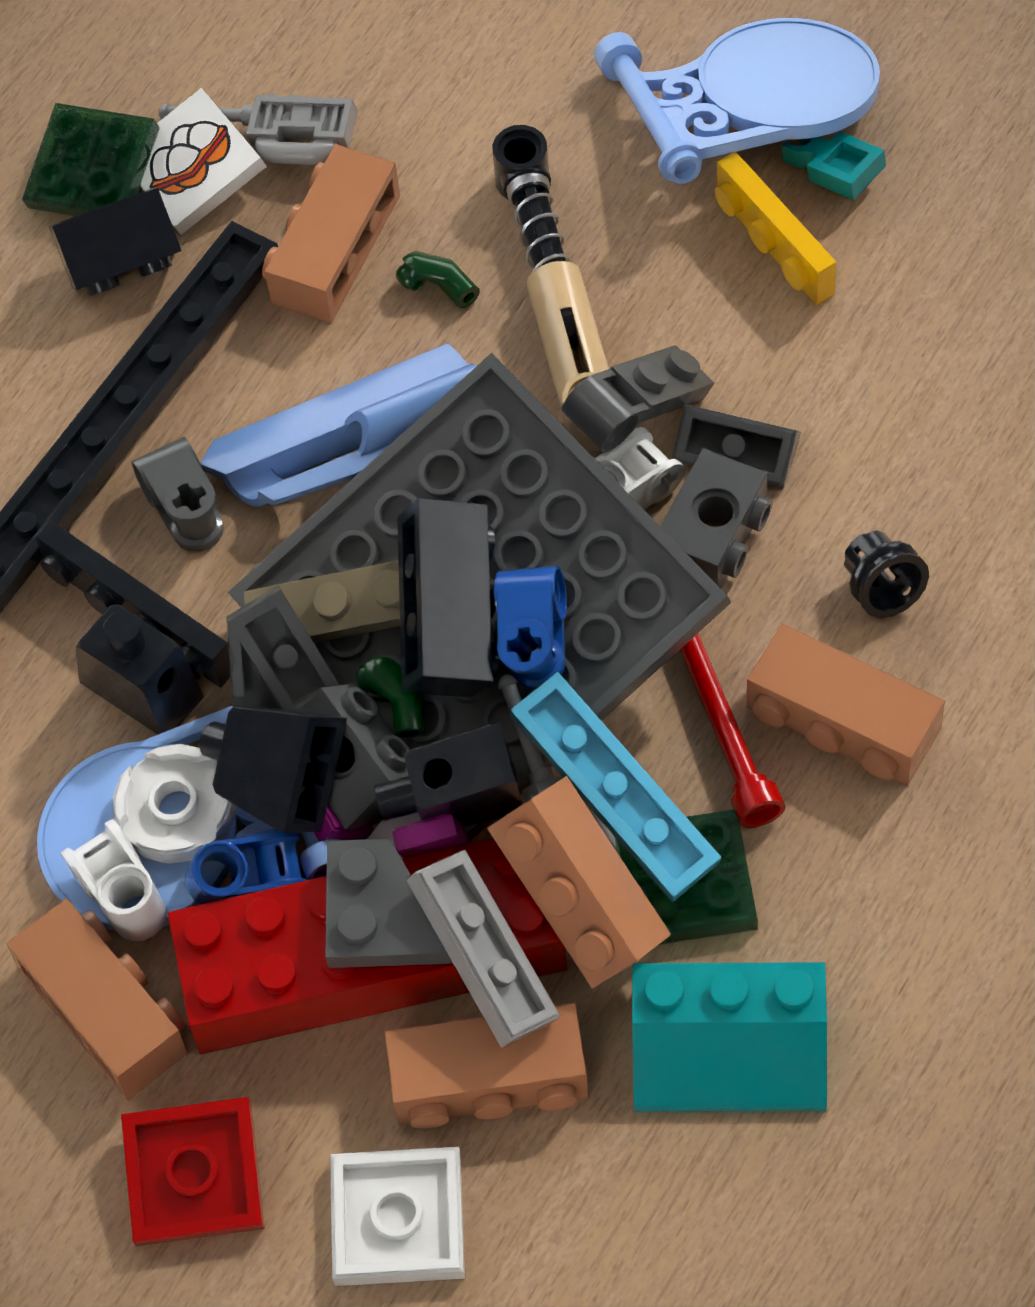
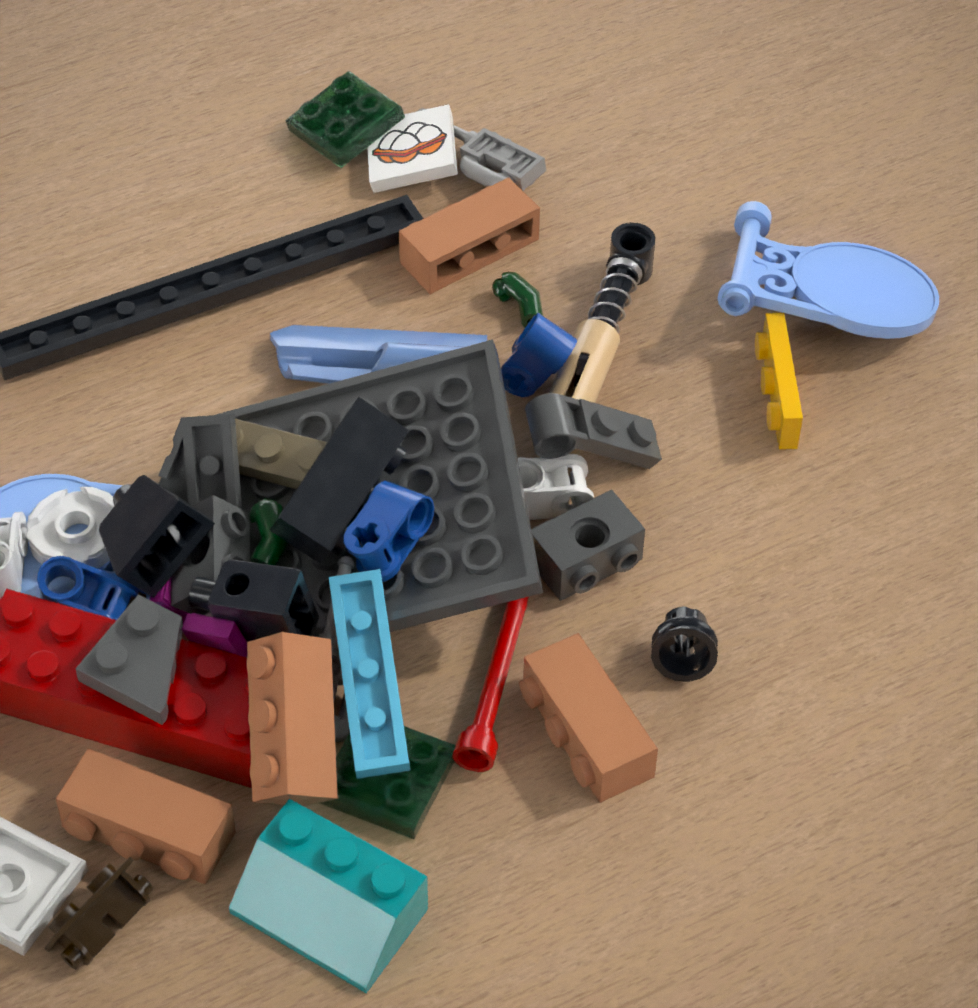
camera: 25 degrees right, 10 degrees down
(105, 584) = (147, 380): black plate -> none
(116, 240) = (319, 168): black brick -> none
(127, 663) = (113, 413): black torso -> none
(181, 494) = (241, 344): dark grey piece -> none
(483, 948) = (186, 724): light grey tile -> none
(504, 1214) = (82, 930): none -> dark brown hinge
(519, 332) = (536, 356): none -> blue piece
(738, 438) = (661, 516): dark grey slope -> none
(840, 165) = (859, 362): teal plate -> none

